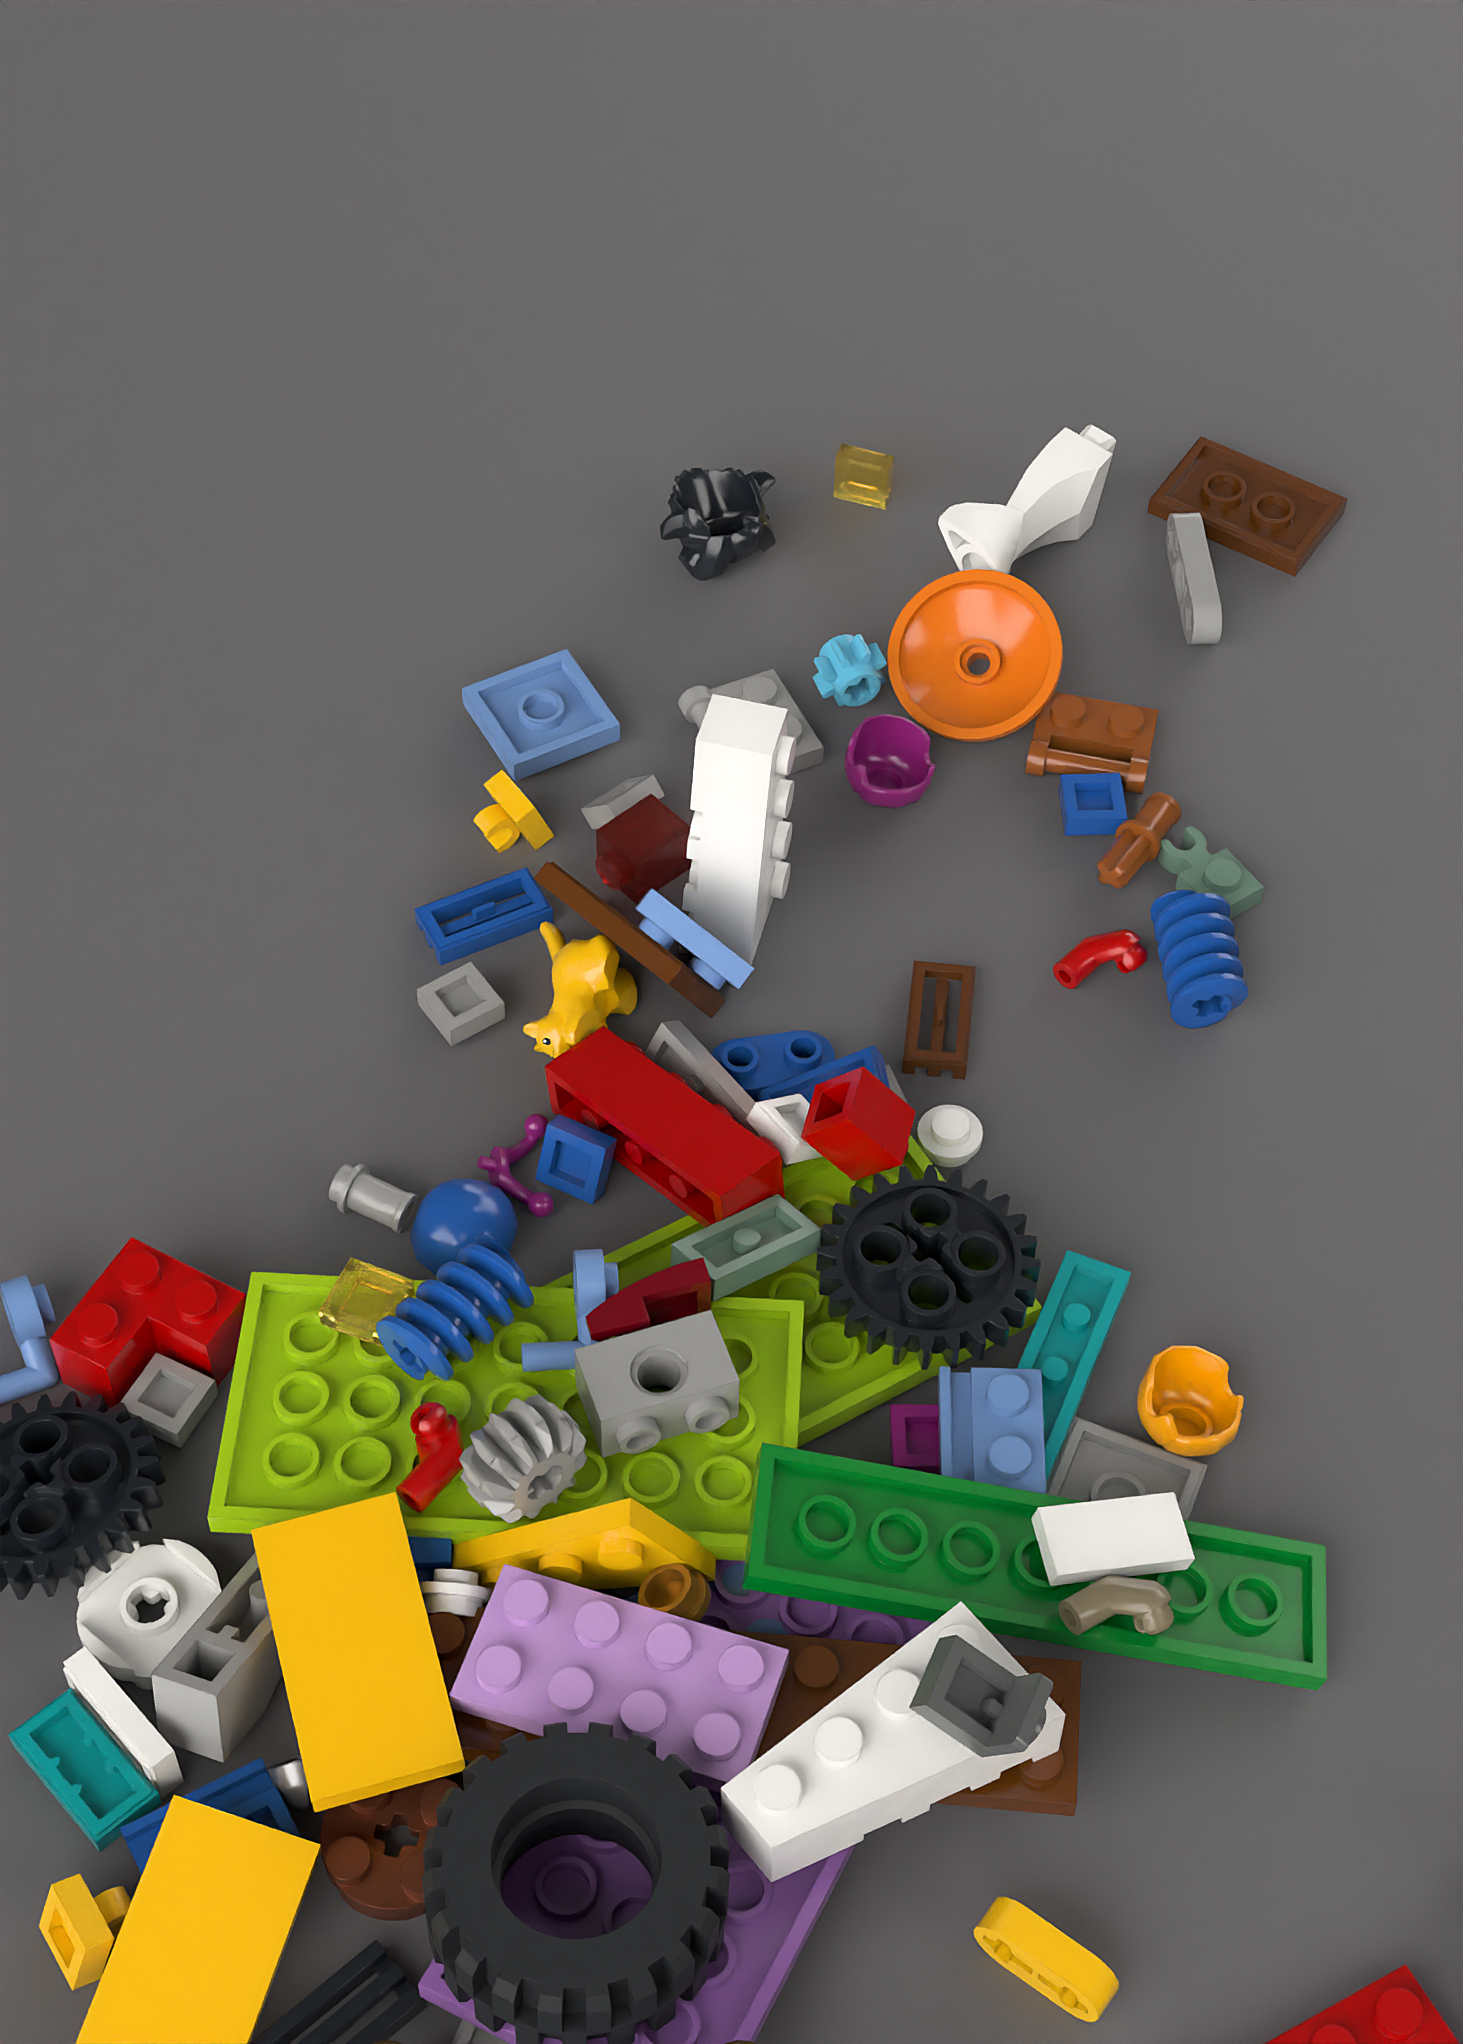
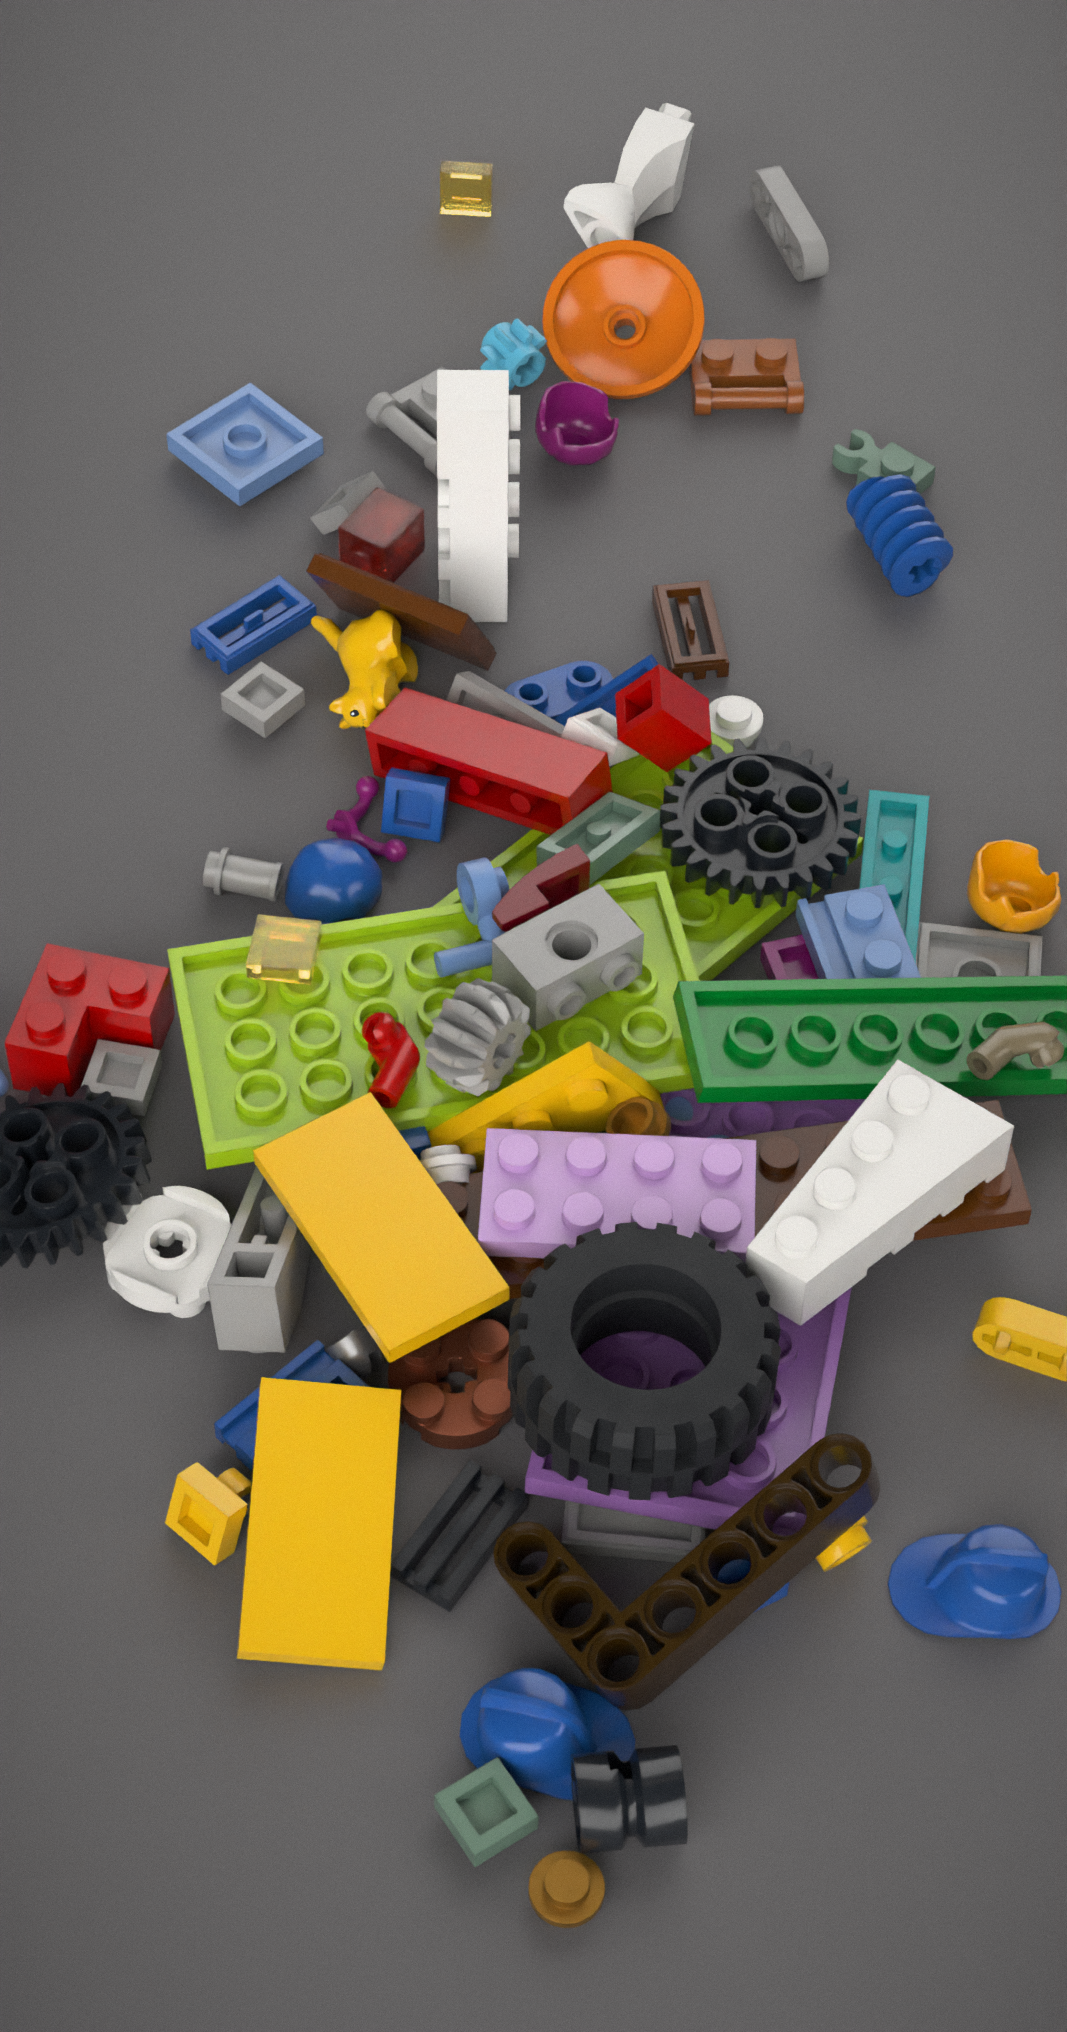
camera: 15 degrees left, 0 degrees up
(85, 1769) = (161, 1387): teal plate -> none
(123, 1721) = (183, 1341): white tile -> none
(455, 1308) = (370, 936): blue piece -> none
(510, 816) = (251, 533): yellow tile -> none
(711, 958) = (488, 607): medium blue plate -> none
(718, 518) = (350, 246): black hair -> none
(981, 1700) = (947, 1124): dark grey bracket -> none
(1091, 803) = (764, 427): blue plate -> none
(1096, 950) = (805, 548): red arm -> none
(1112, 1538) = (992, 997): white tile -> none
(1138, 840) = (814, 448): dark orange axle -> none
(1250, 505) = (816, 153): reddish brown tile -> none

